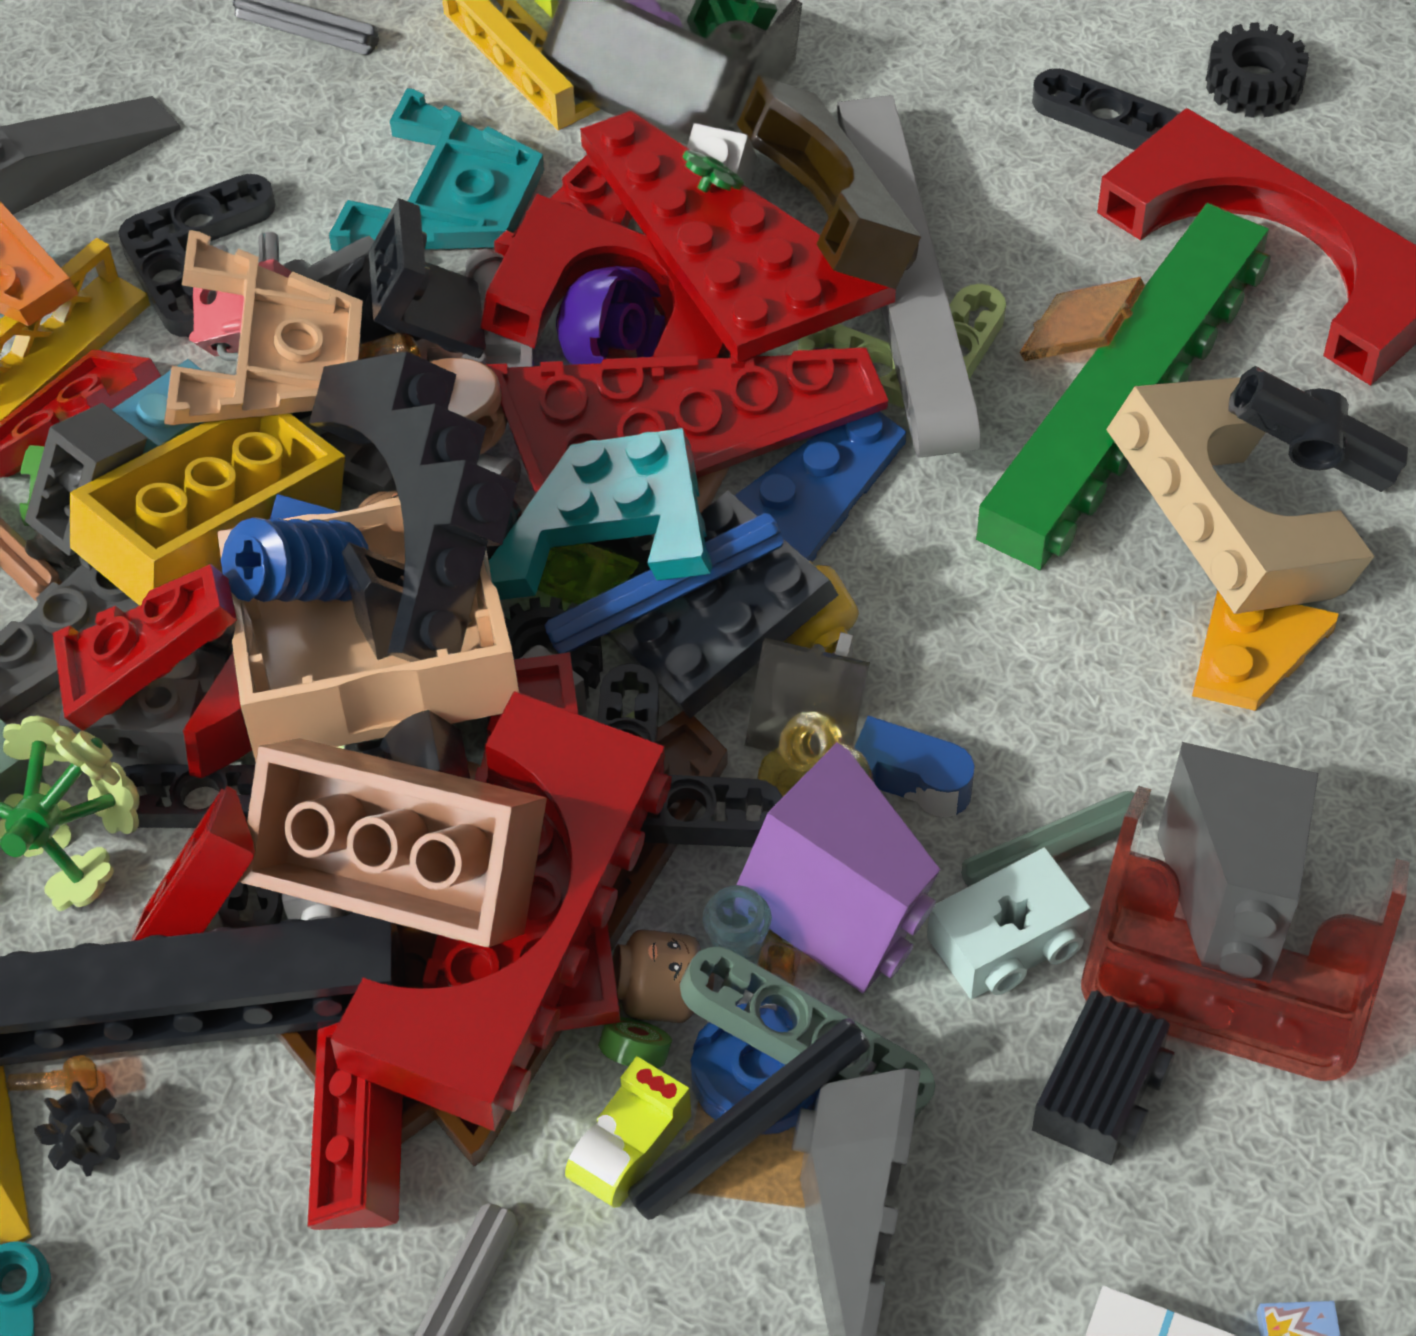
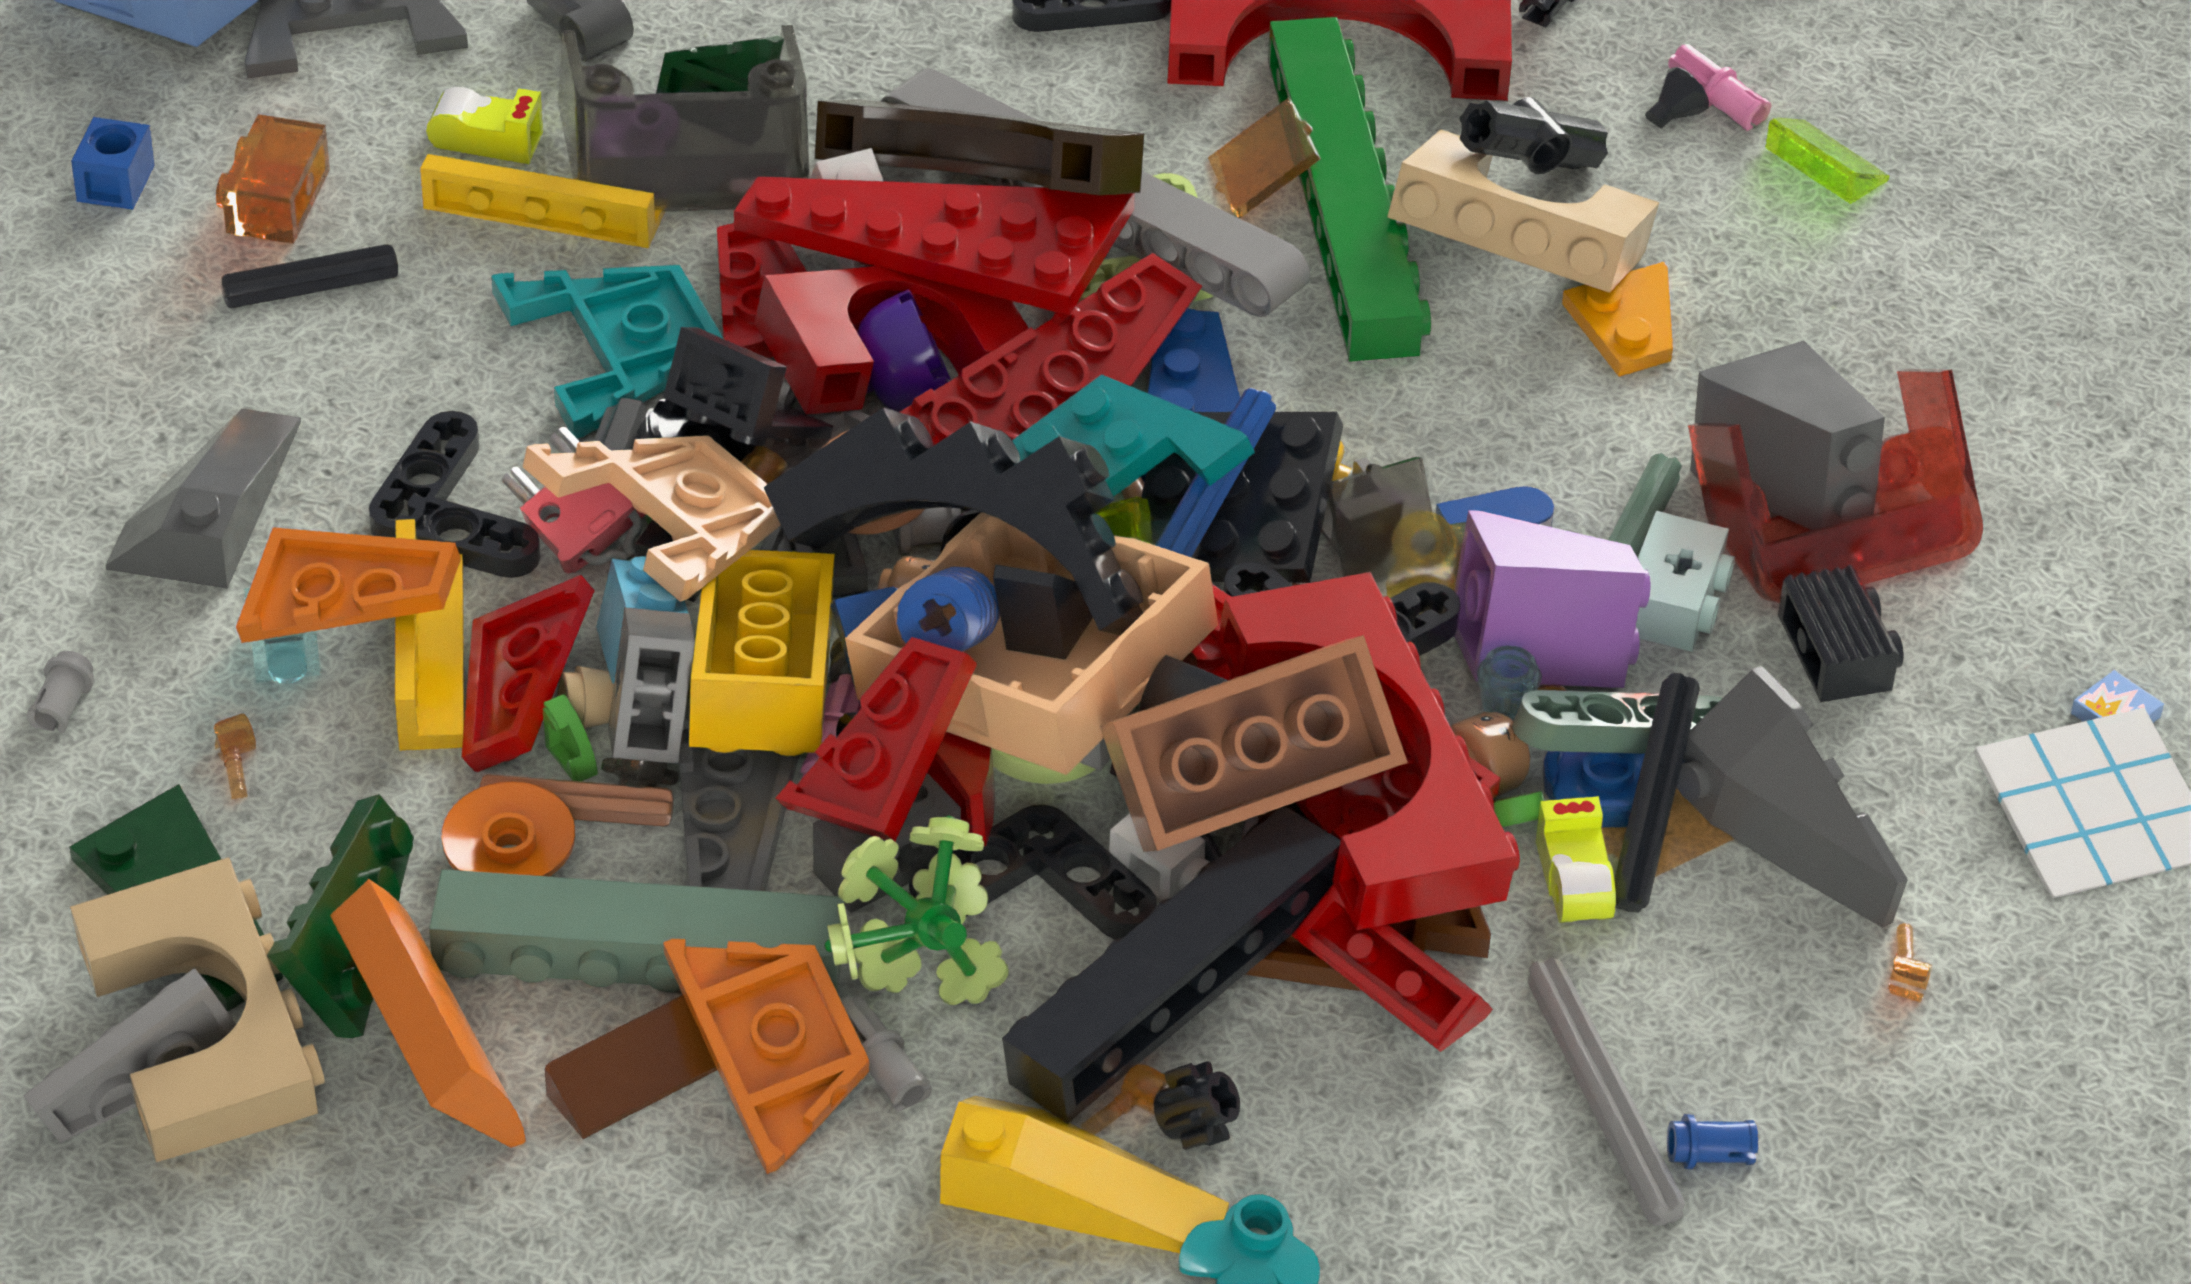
camera: 45 degrees left, 10 degrees down
(201, 872) = (1104, 878): red slope -> none
(712, 172) = (900, 179): green plant -> none

